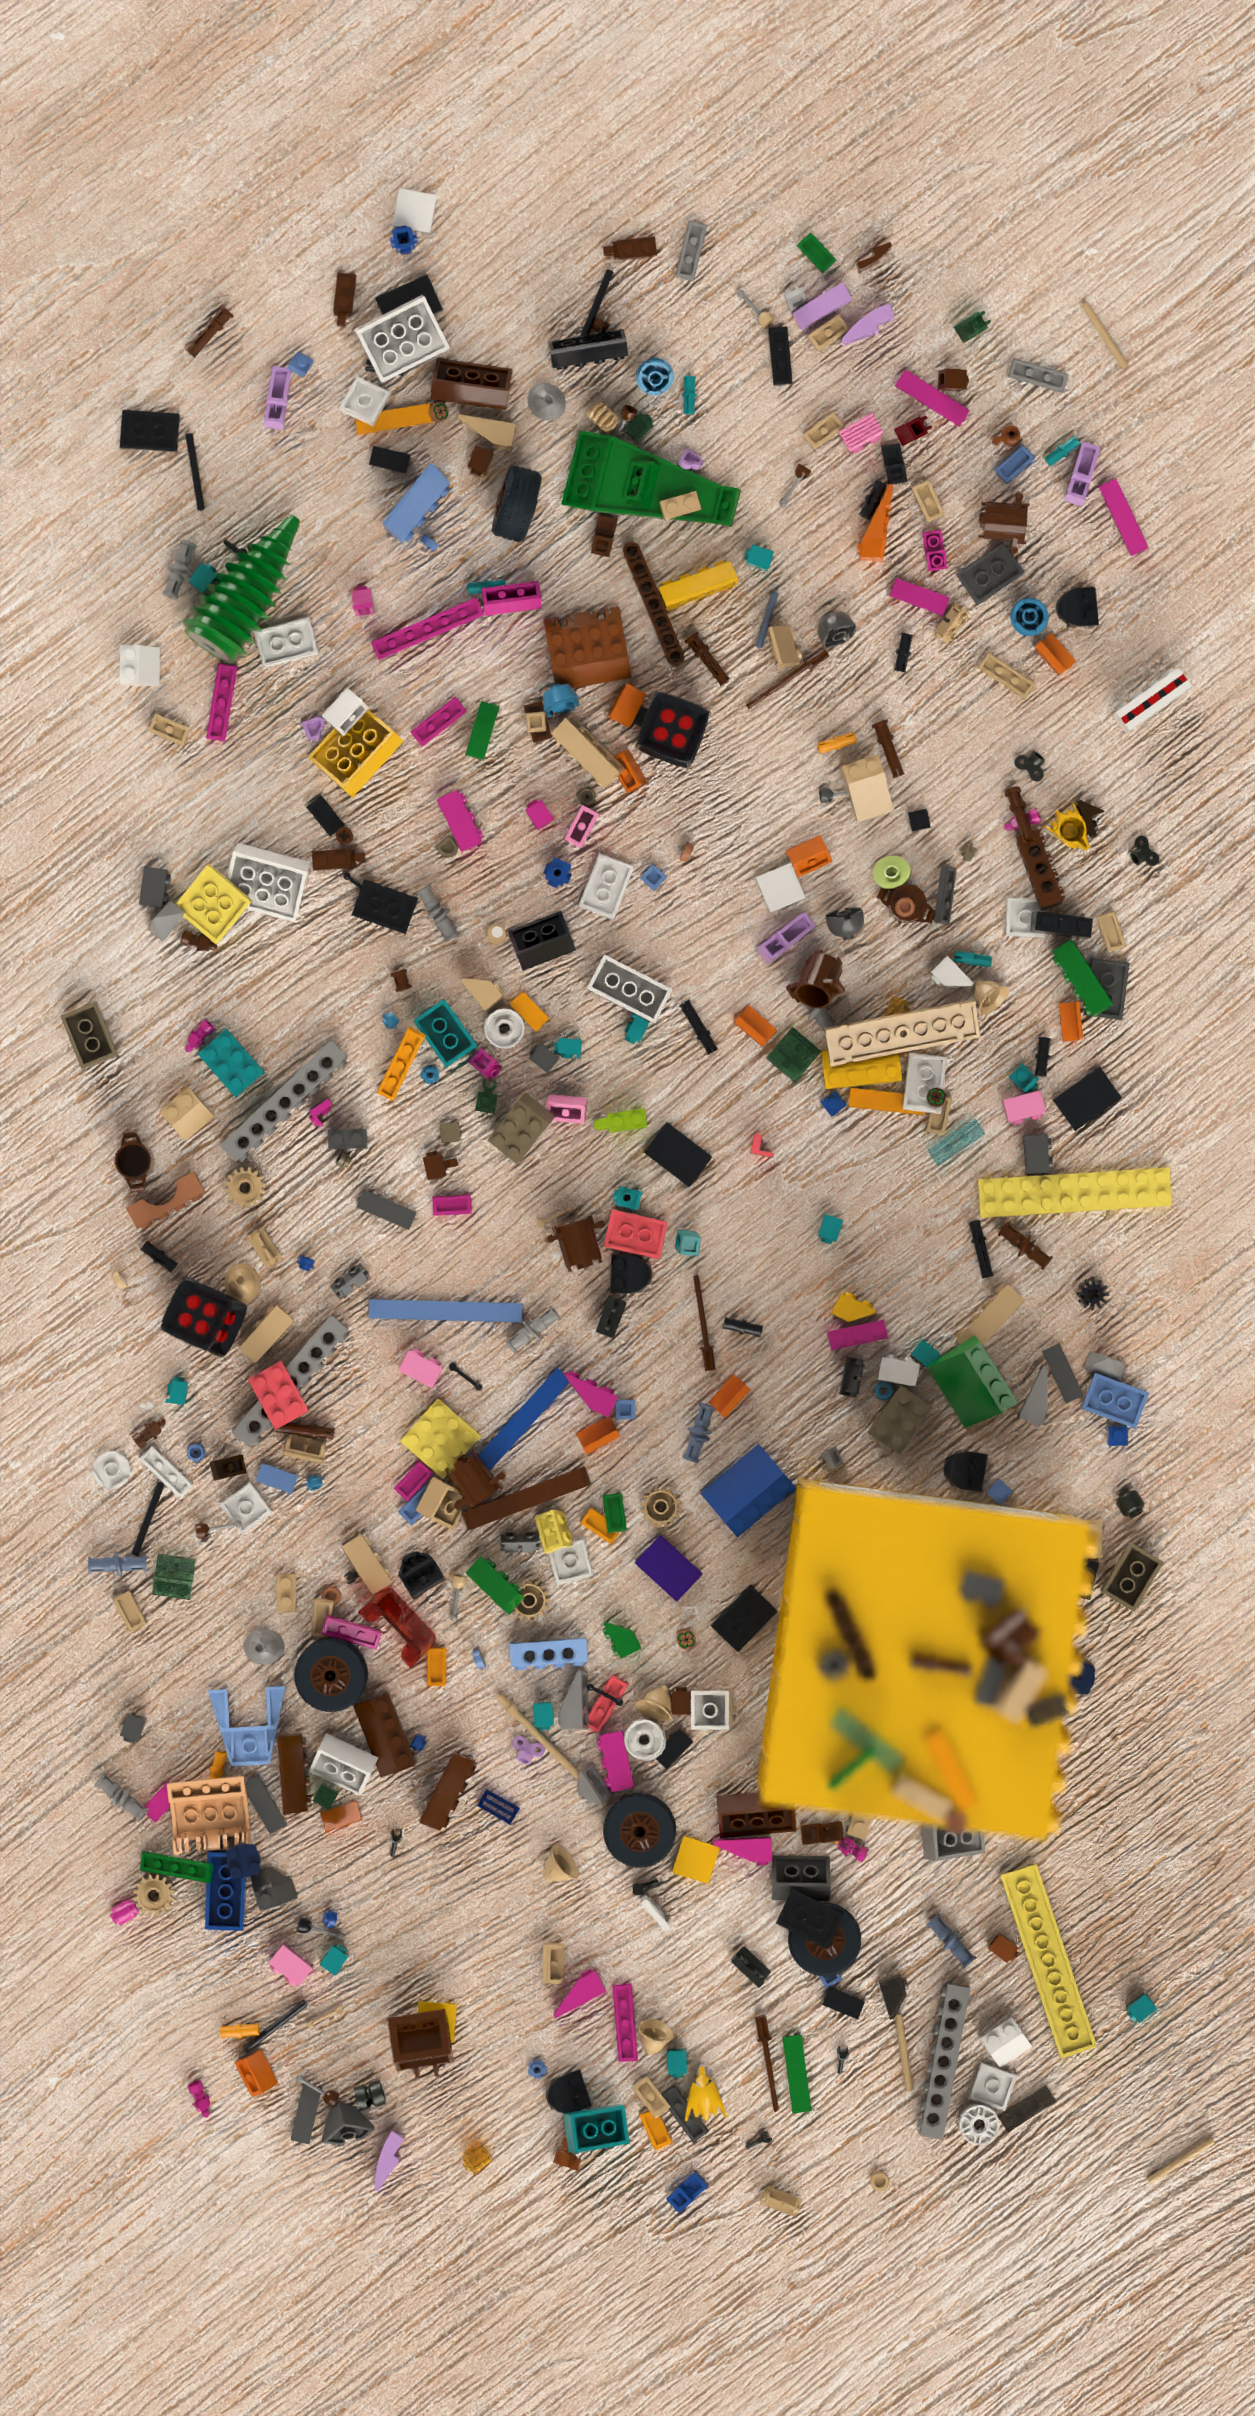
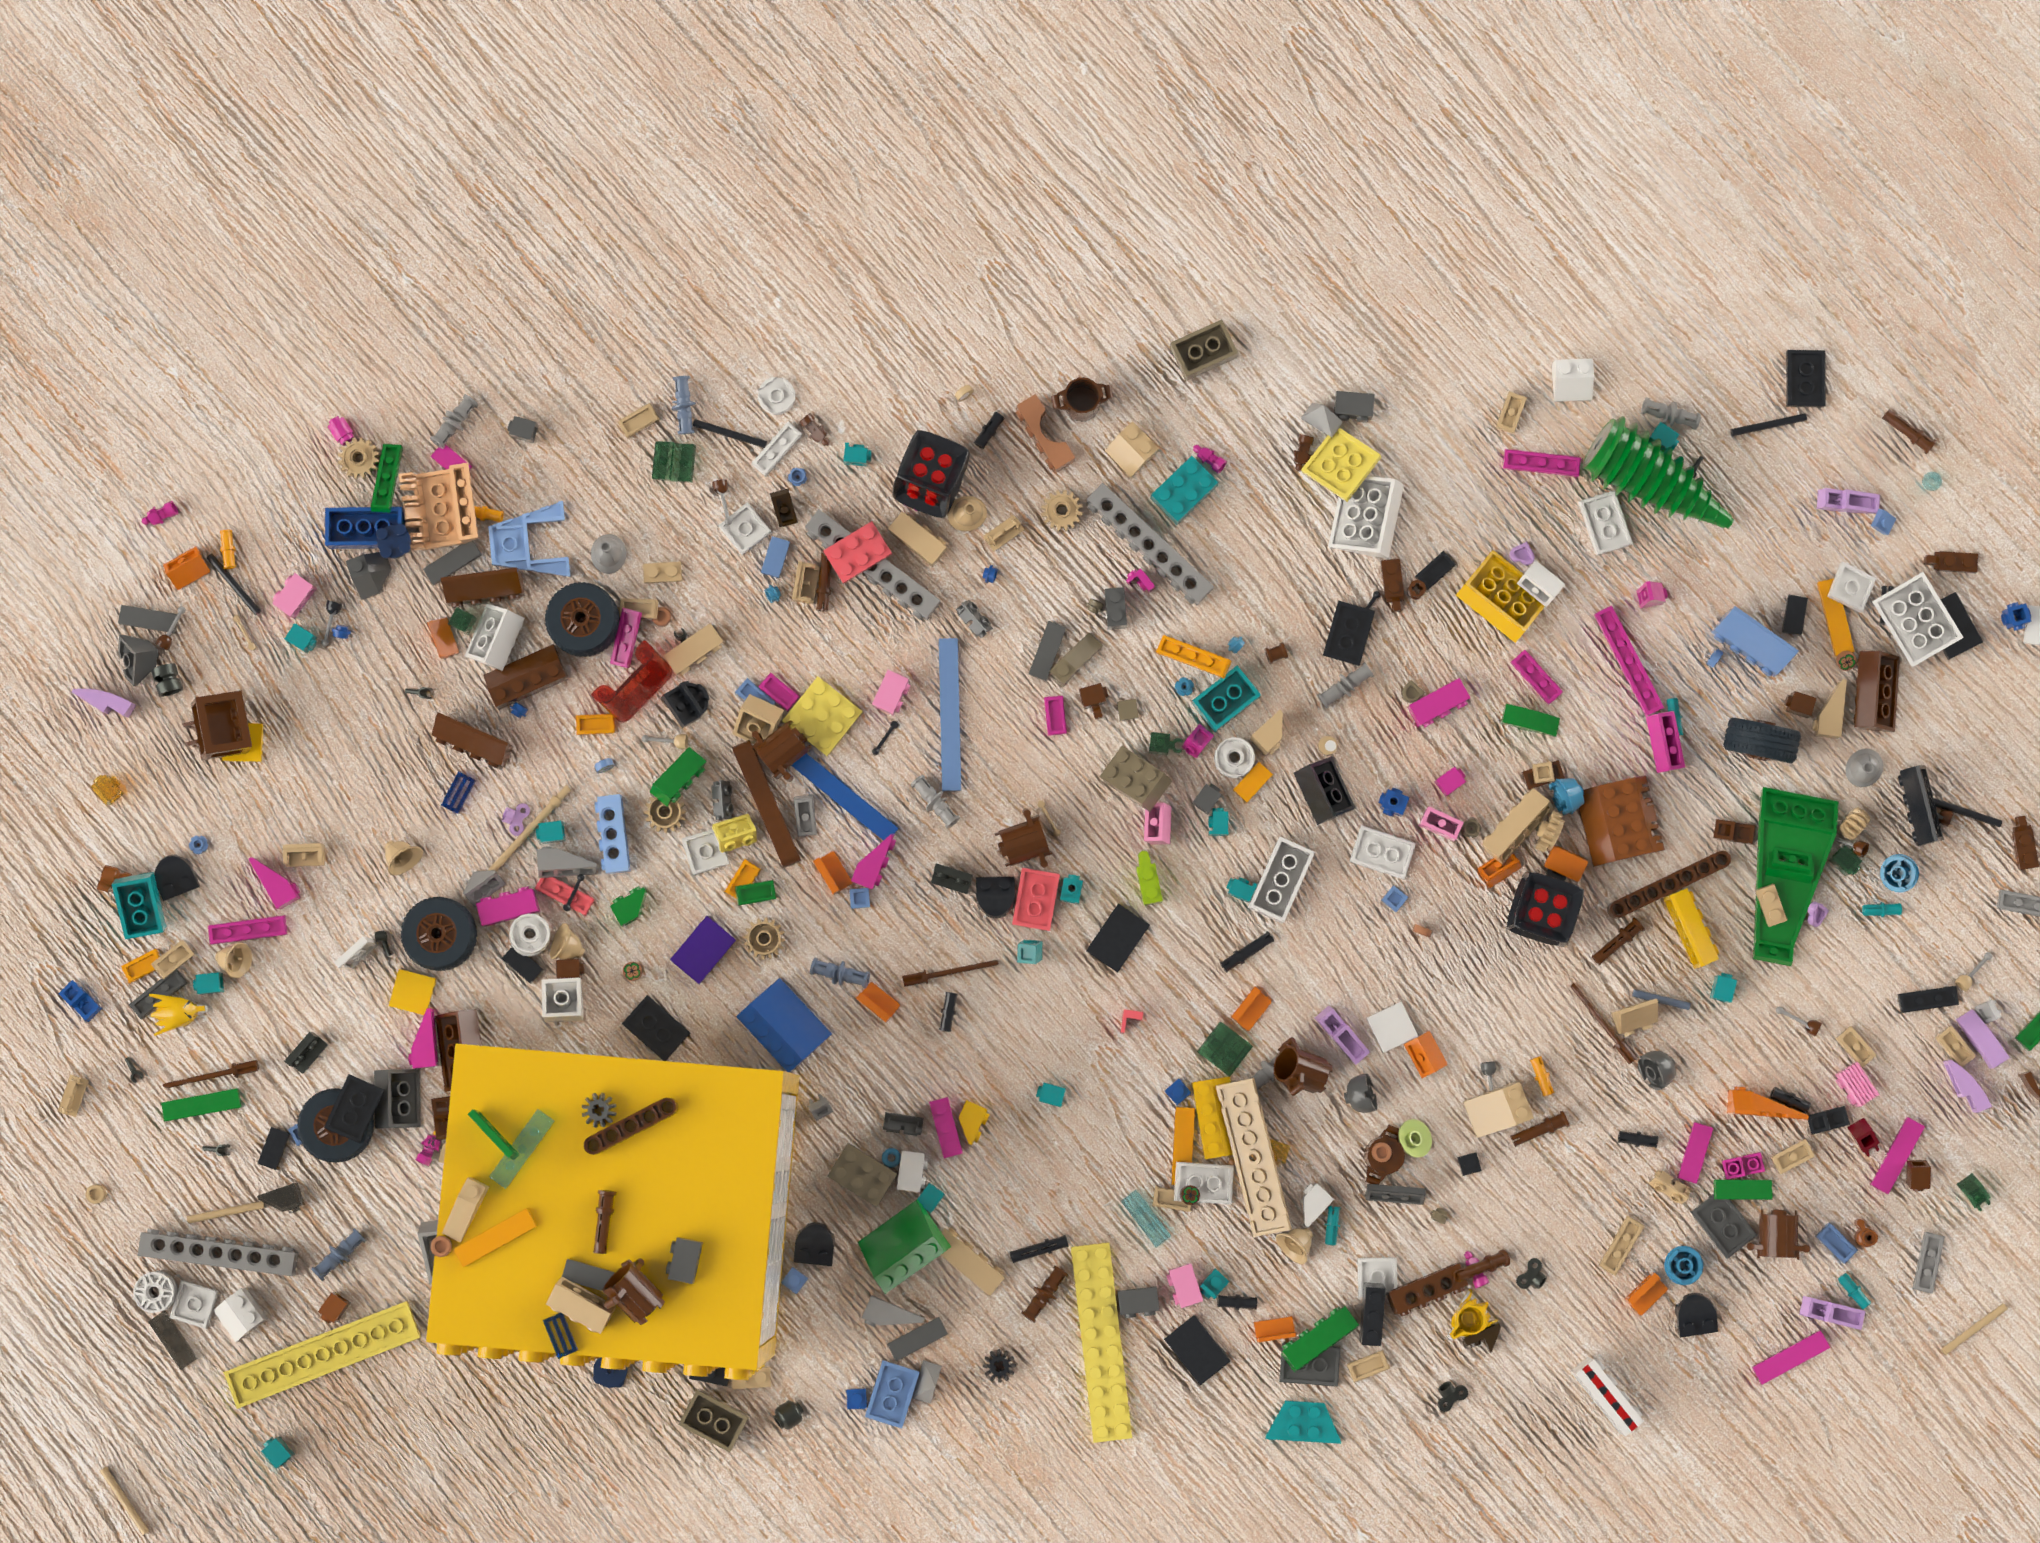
camera: 90 degrees right, 5 degrees down
(261, 306) = (1937, 481): none -> clear light blue plate
(396, 1181) = (1075, 659): none -> dark tan slope
(539, 1460) = (805, 815): none -> light grey slope
(595, 720) = (1549, 831): none -> tan gear
(958, 553) = (1742, 1189): none -> green tile
(1163, 998) = (1303, 1423): none -> teal wing

